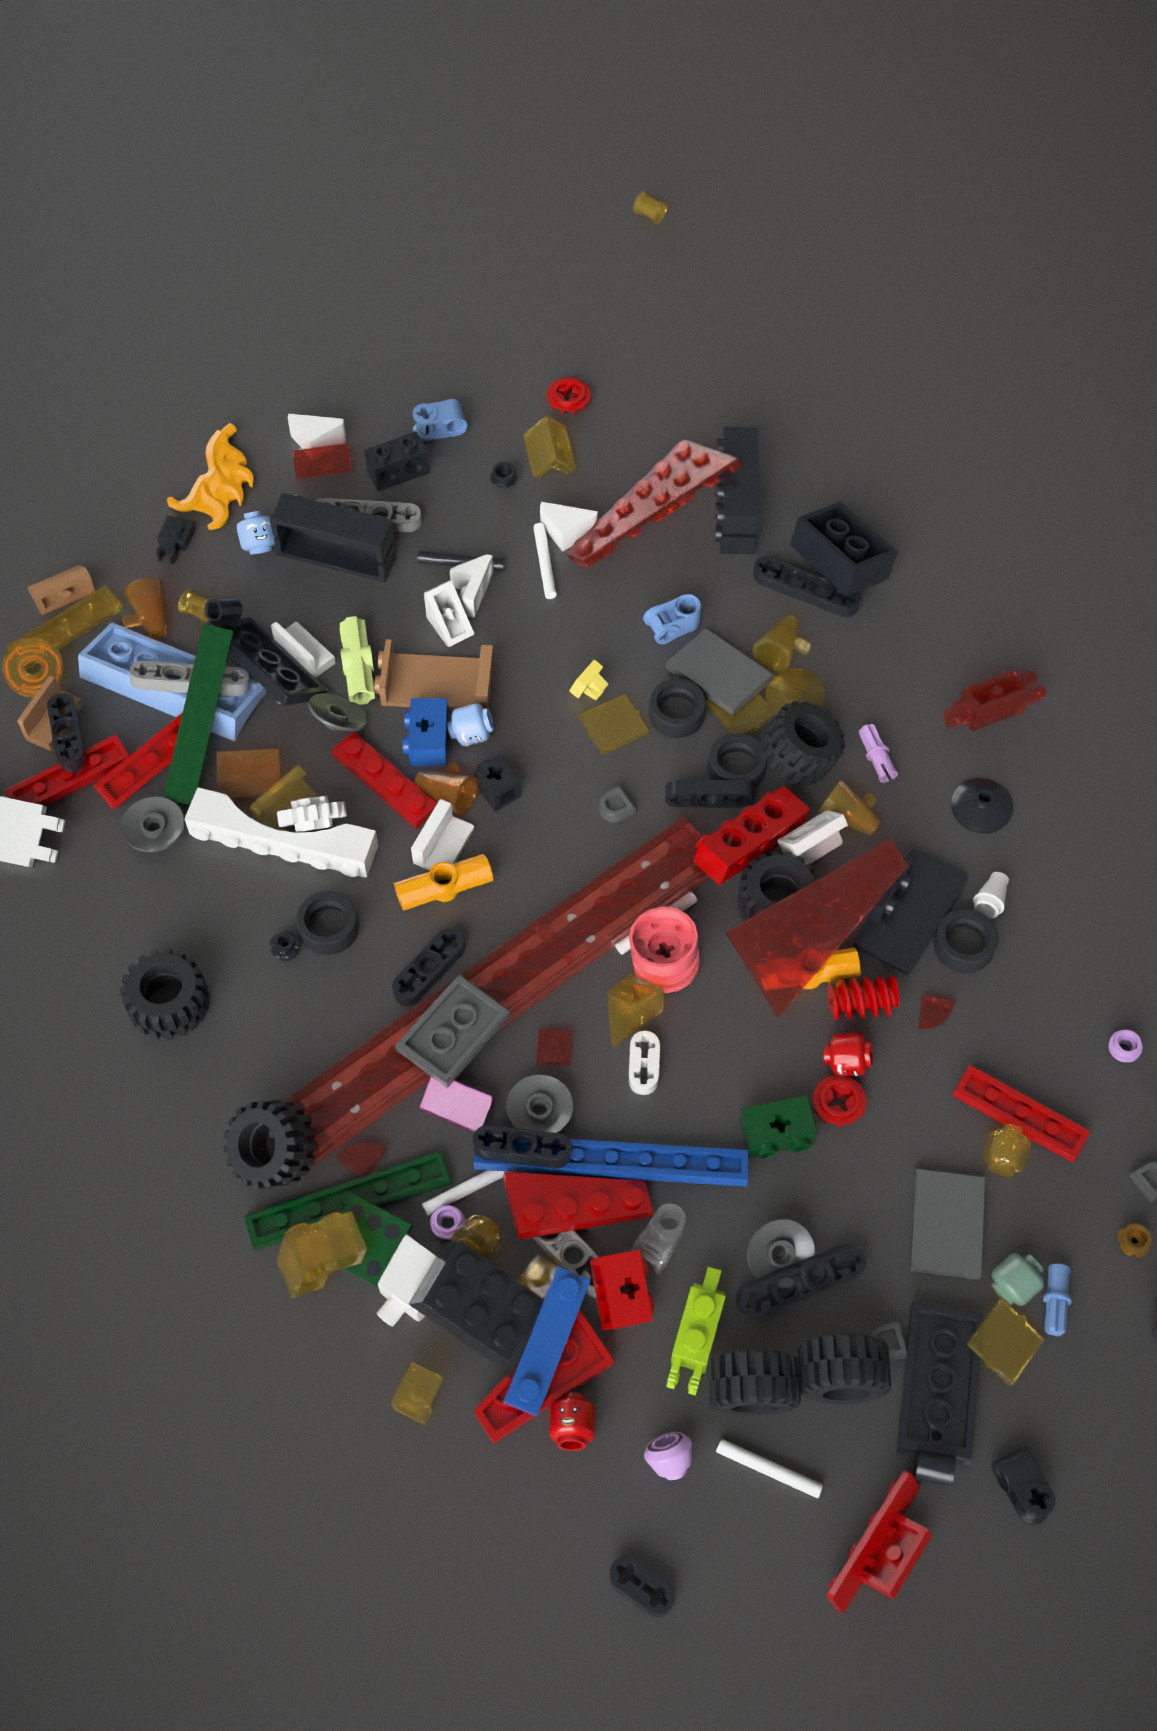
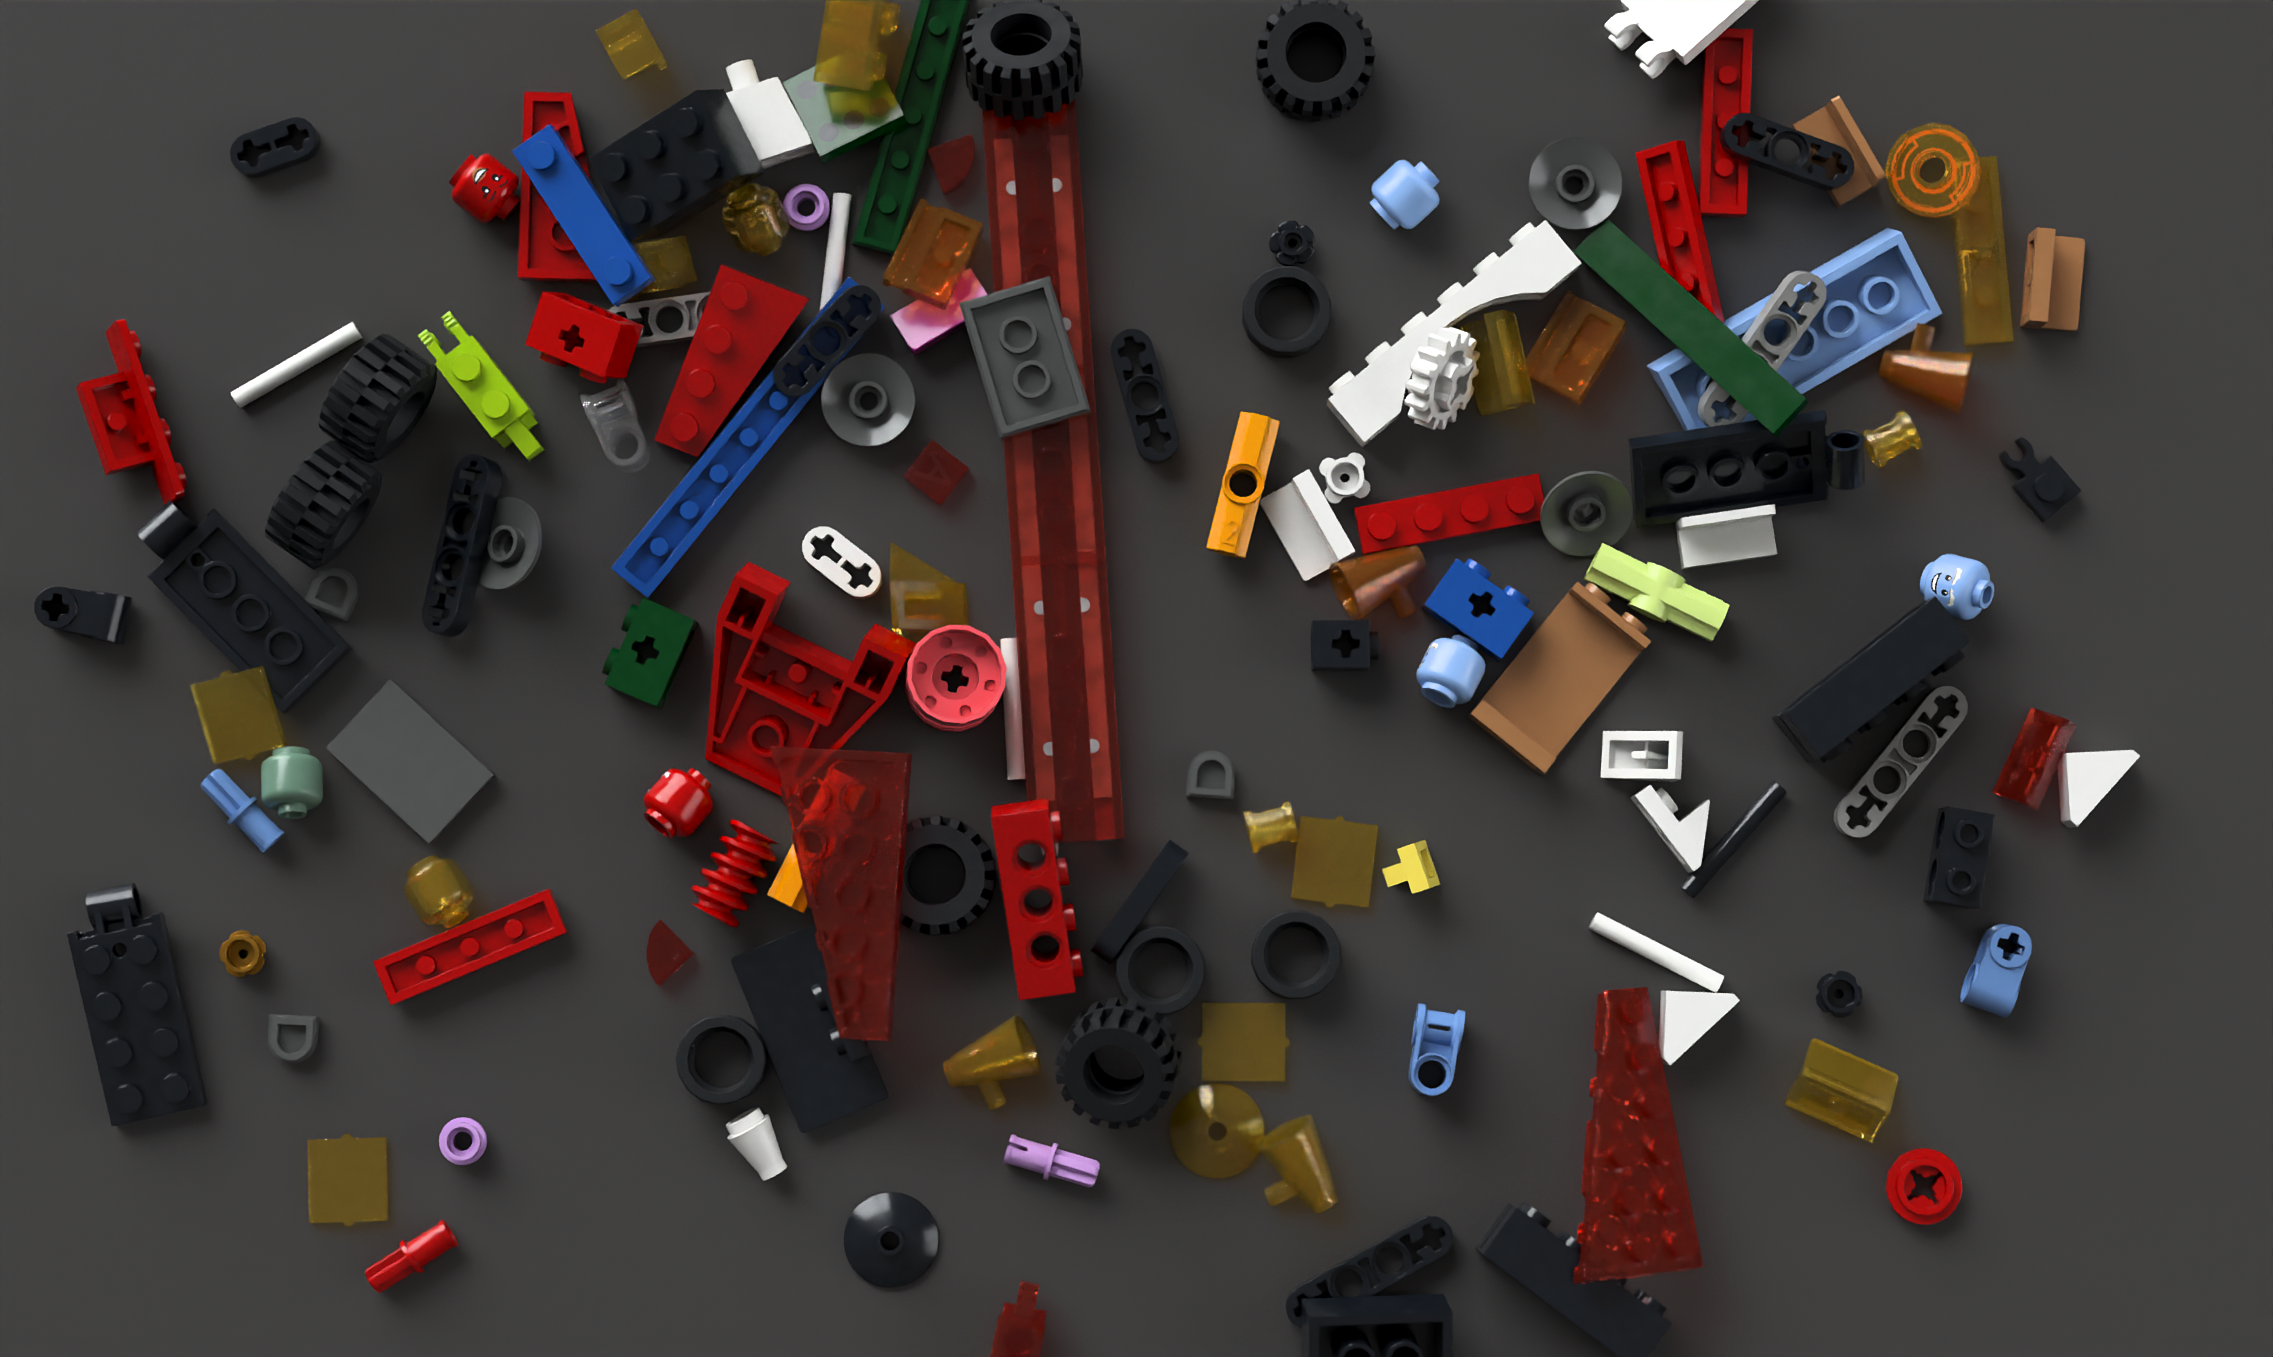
camera: 125 degrees right, 25 degrees up
(216, 902) = (1405, 194): none -> light blue head
(221, 483) = (2094, 600): light orange piece -> none
(398, 832) = (1351, 466): none -> white plate
(426, 1127) = (933, 254): none -> clear orange plate
(619, 758) = (1270, 826): none -> clear yellow bush
(669, 1455) = (380, 265): lavender cone -> none
(719, 671) = (1313, 1051): dark grey tile -> none
(738, 1038) = (784, 688): none -> red wedge
(814, 837) = (983, 975): white panel -> none
(844, 1088) = (622, 733): red gear -> none

